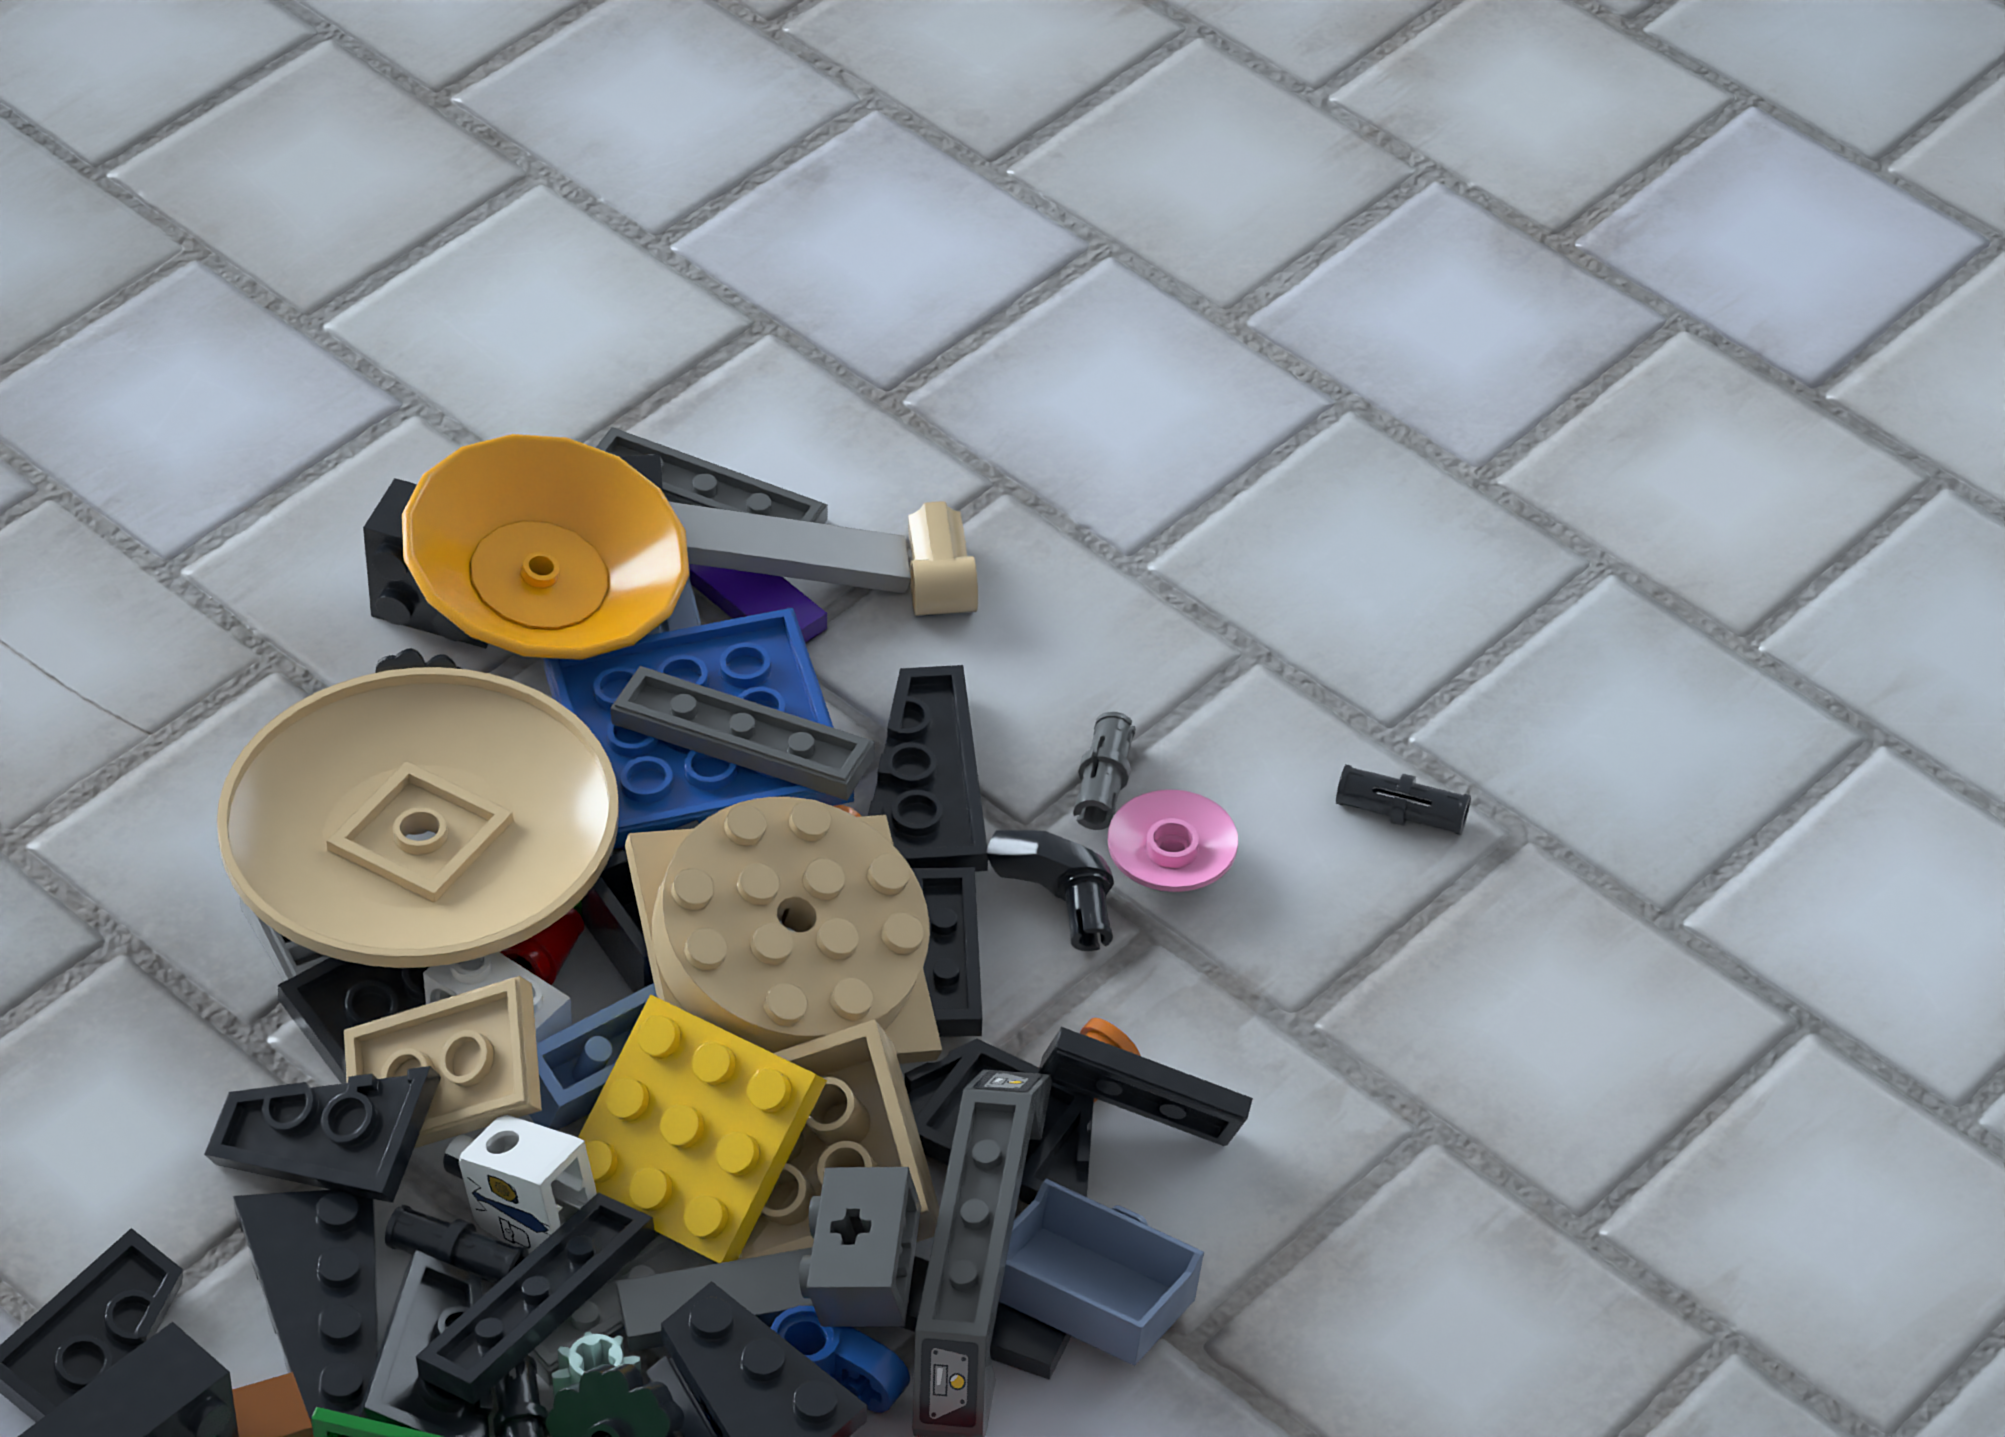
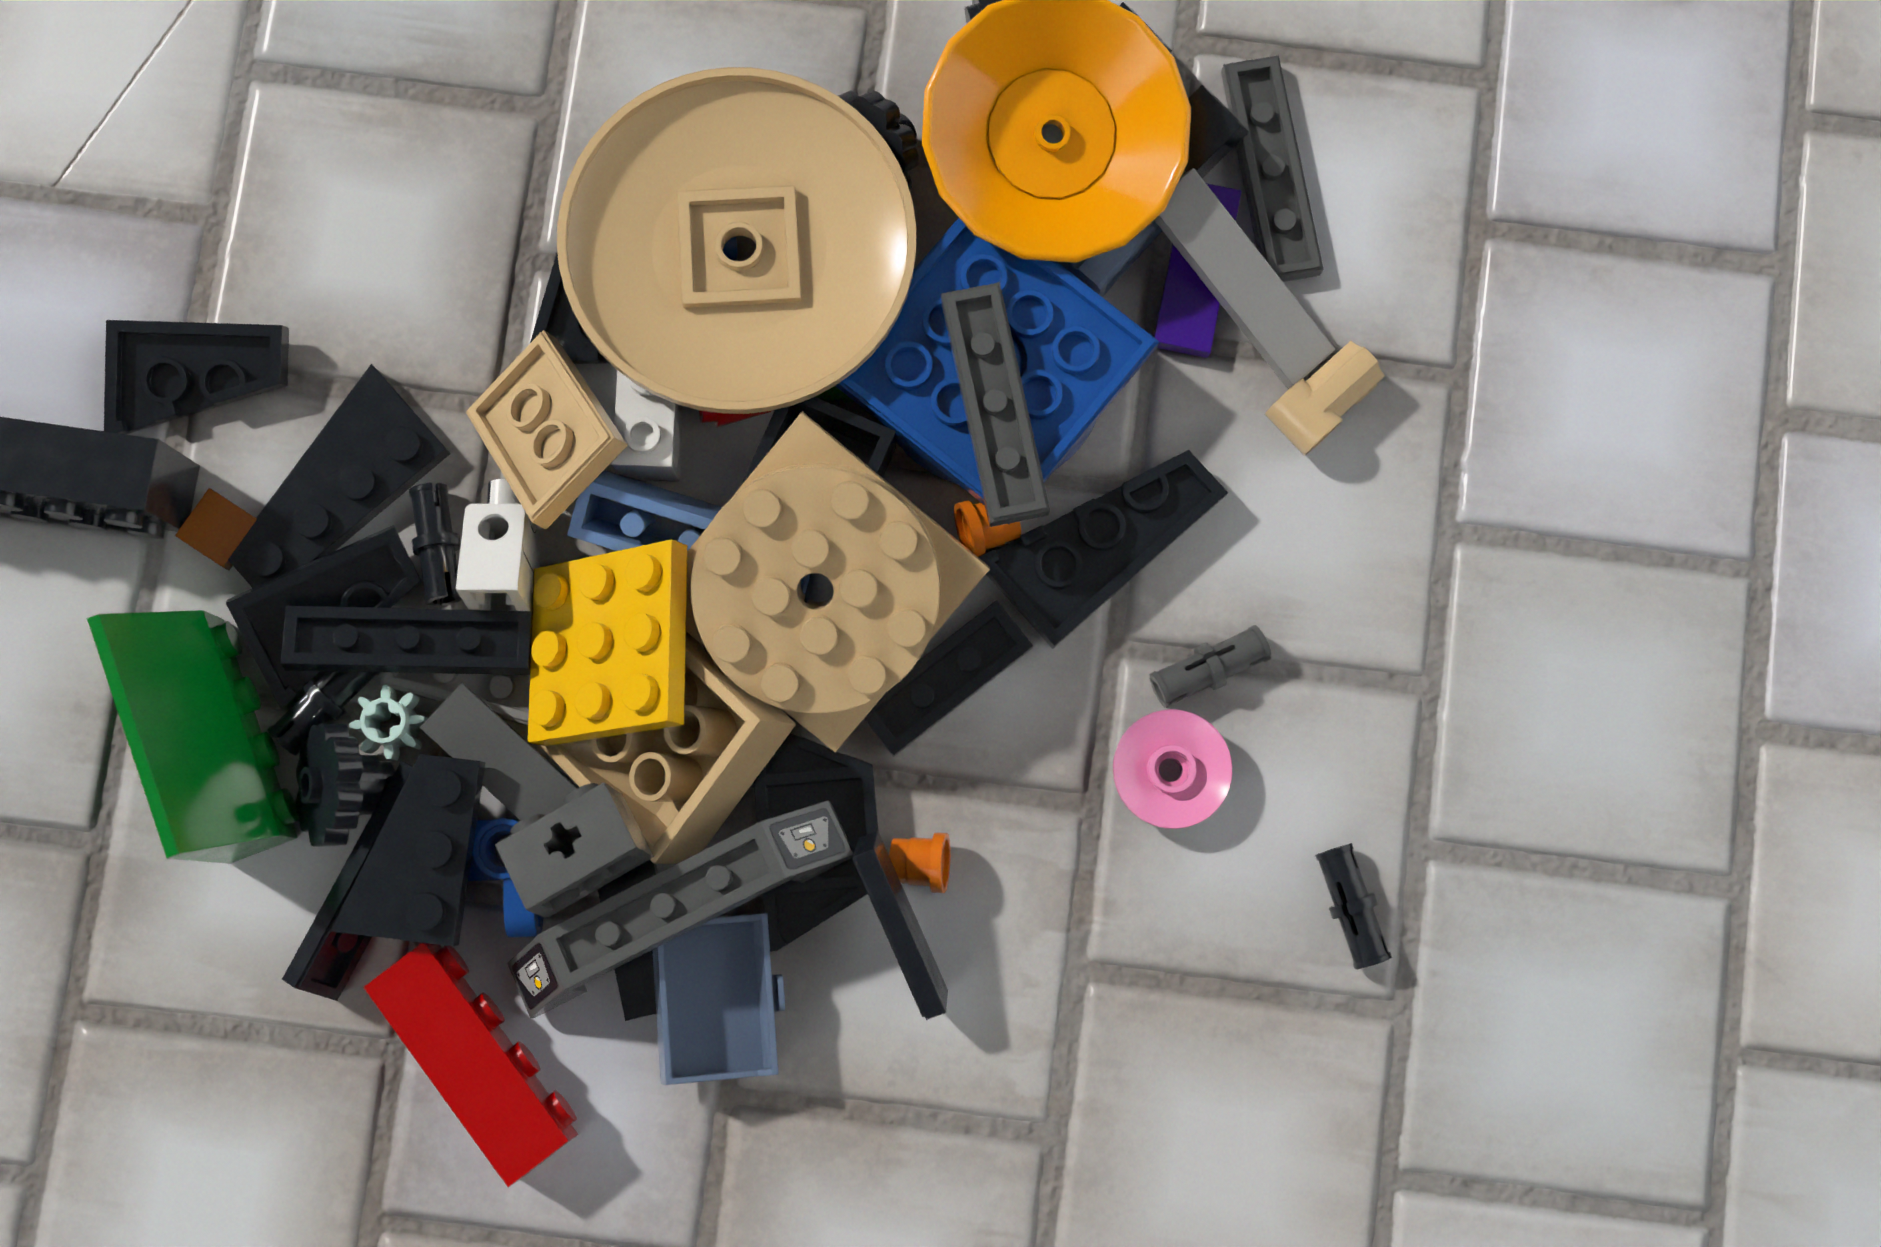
camera: 50 degrees right, 35 degrees up
(327, 1136) = (449, 390): black wing -> none
(1066, 871) = (1085, 712): black arm -> none

